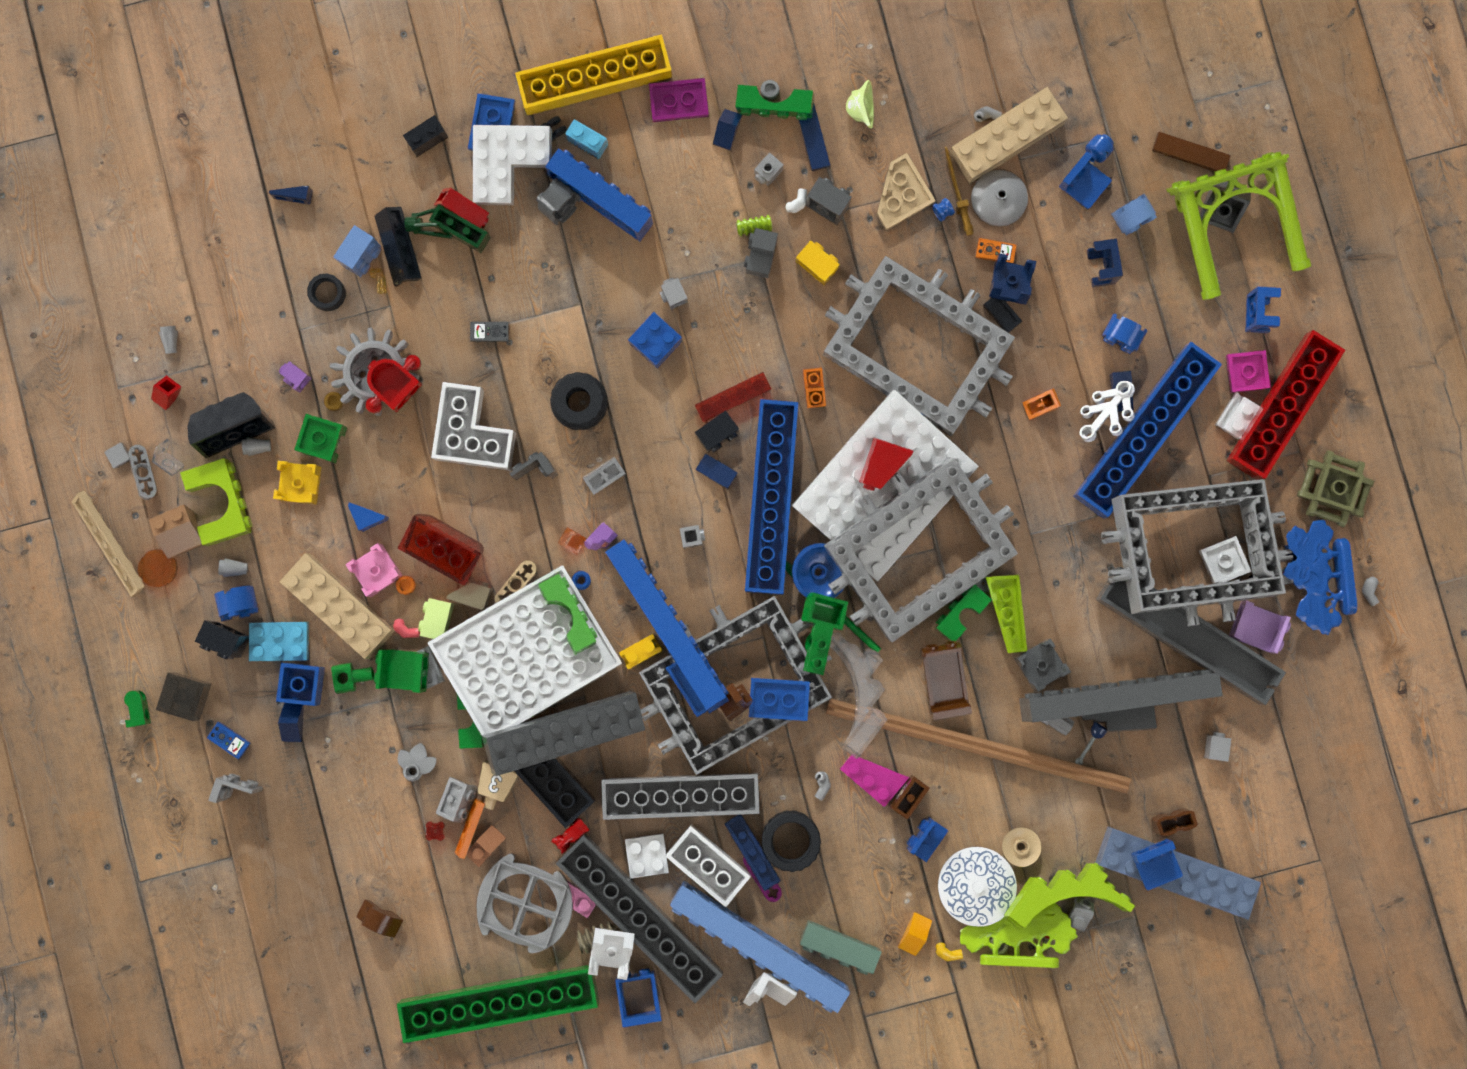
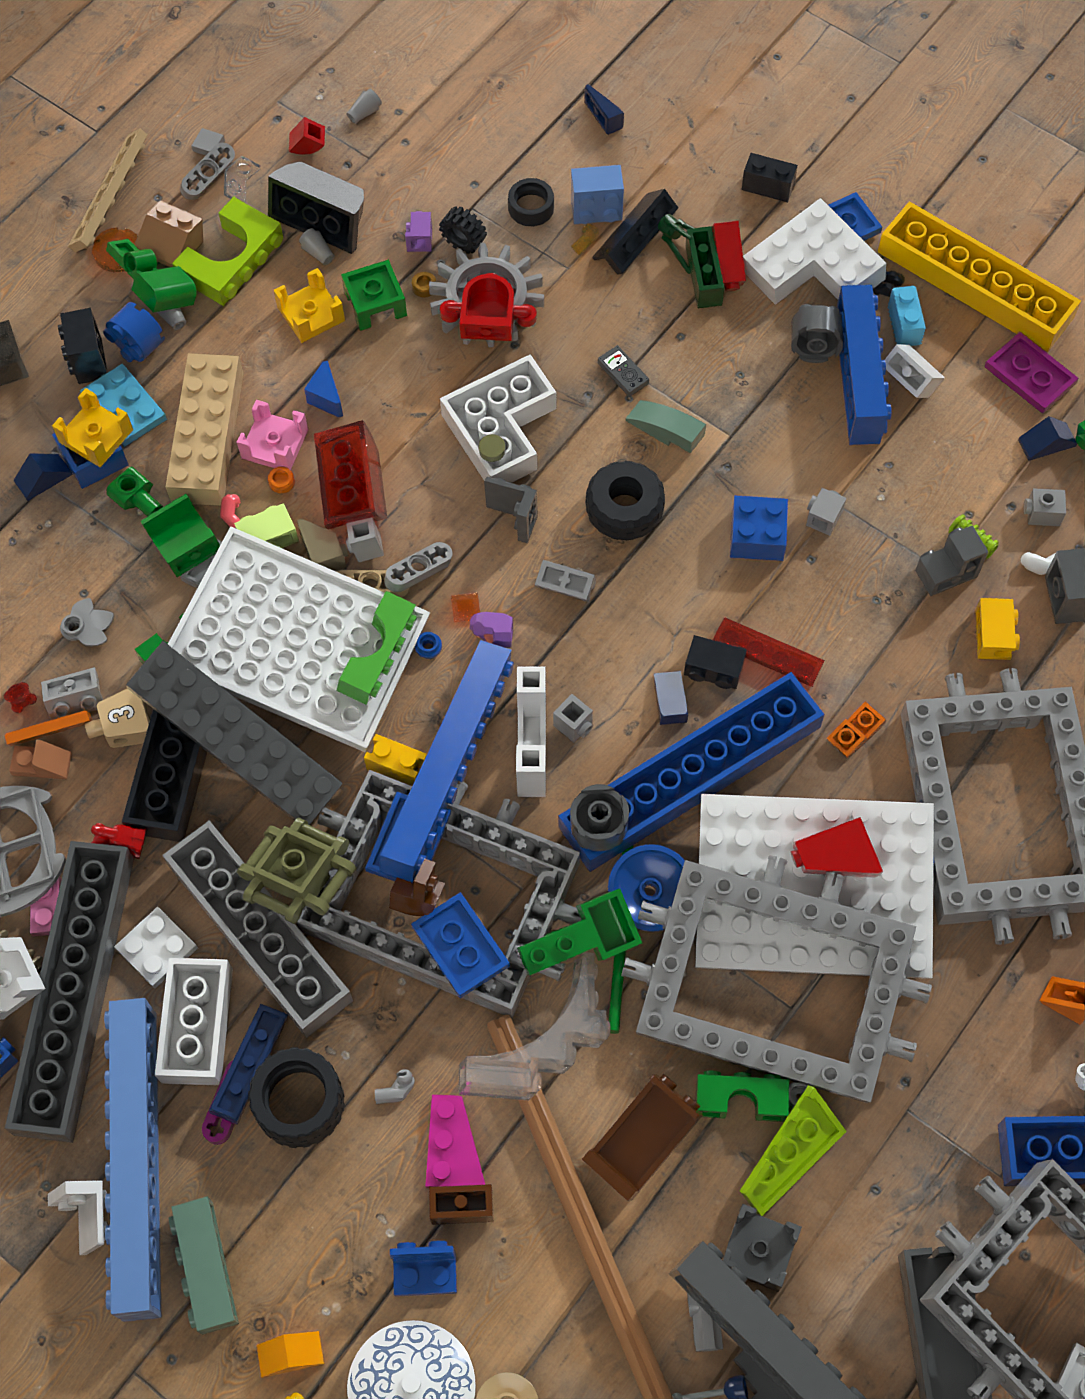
camera: 50 degrees right, 20 degrees down
(215, 567) = (155, 287): none -> green plate
(296, 676) = (94, 430): none -> yellow panel
(317, 351) = (462, 229): none -> black tyre
(488, 568) = (364, 540): none -> light grey brick
(490, 454) = (492, 448): none -> olive tile
(523, 537) = (412, 576): none -> light grey beam
(546, 337) = (667, 424): none -> sand green slope
(626, 168) = (913, 371): none -> white brick
(669, 755) = (297, 866): none -> olive brick
(685, 568) = (531, 732): none -> white arch
(766, 562) = (594, 833): none -> dark grey brick

